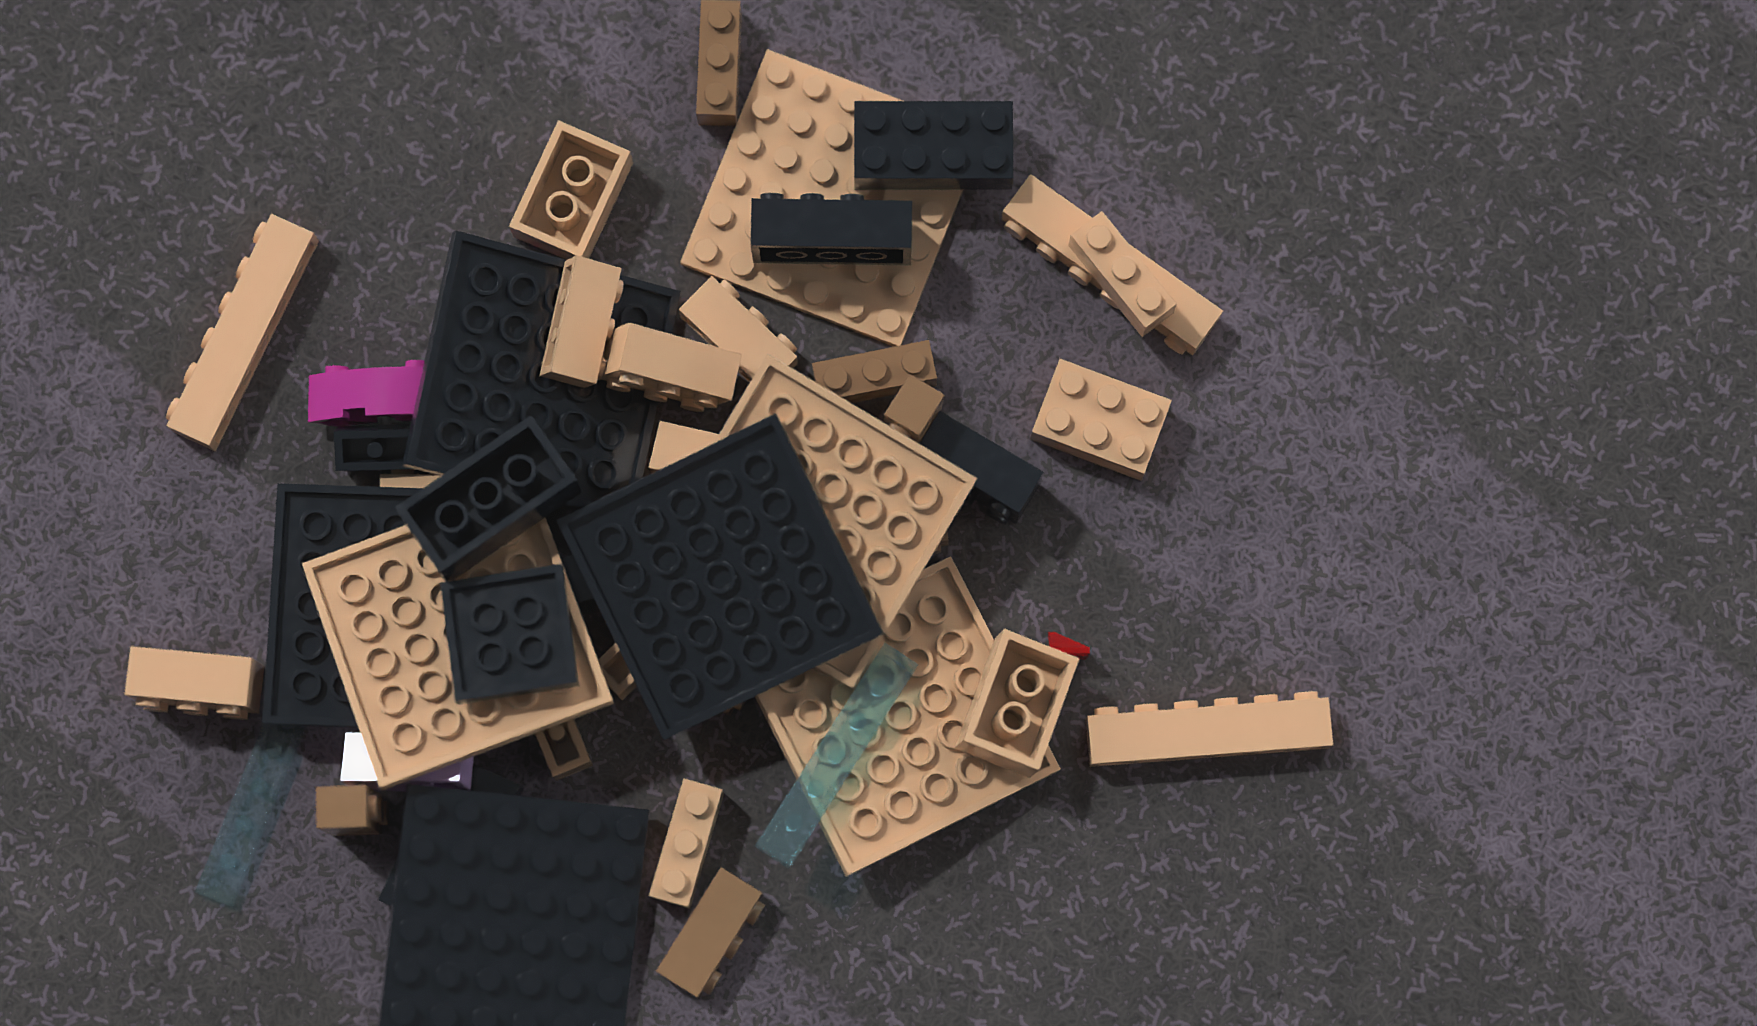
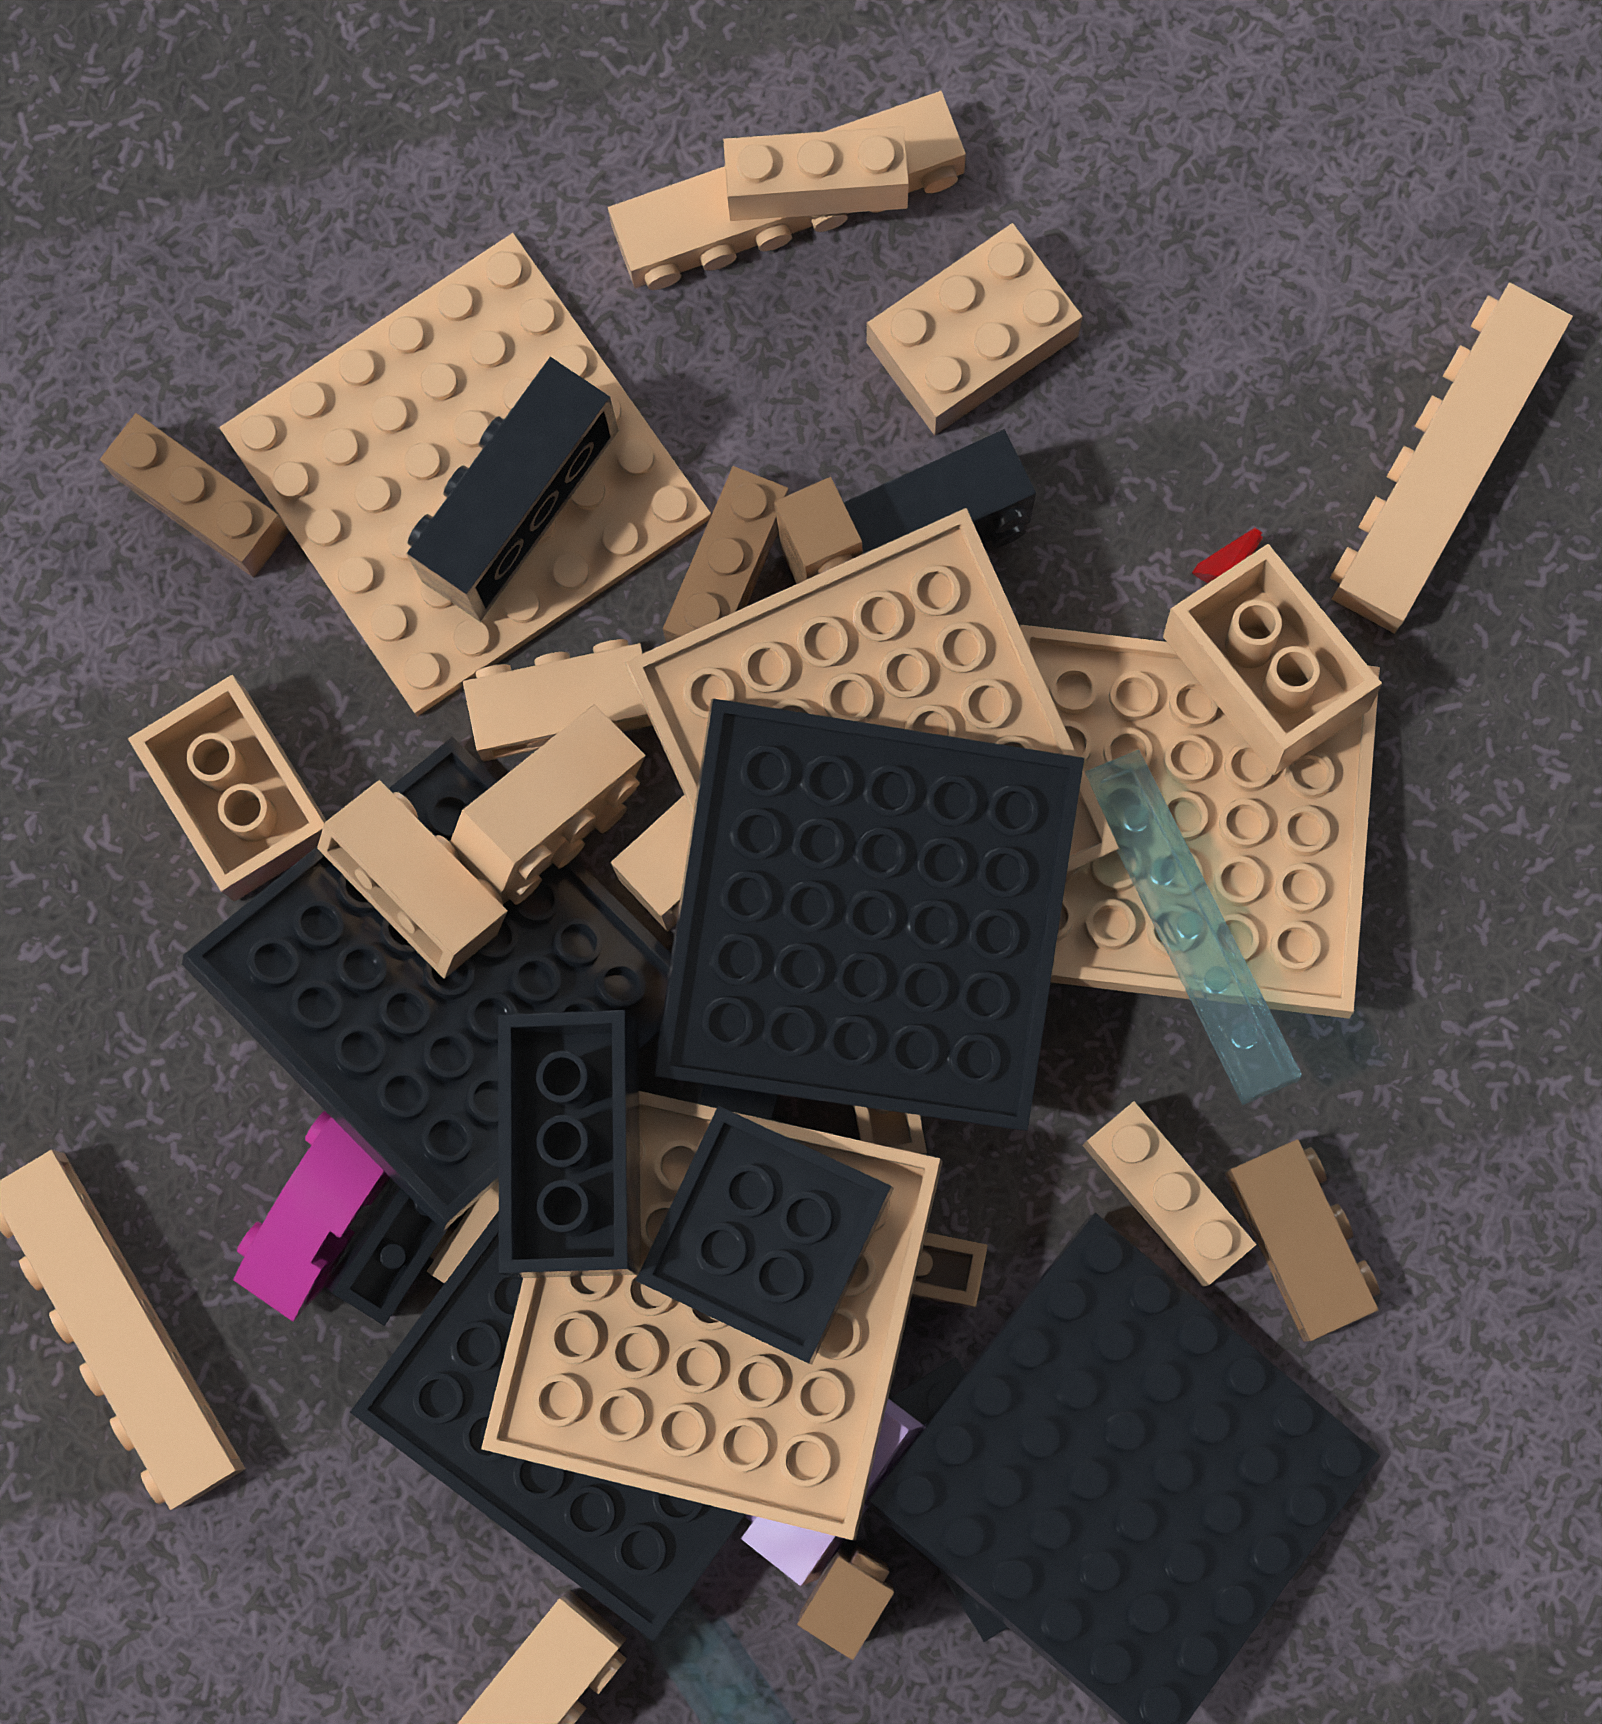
camera: 50 degrees left, 0 degrees up
(933, 145) = (489, 297): black brick -> none

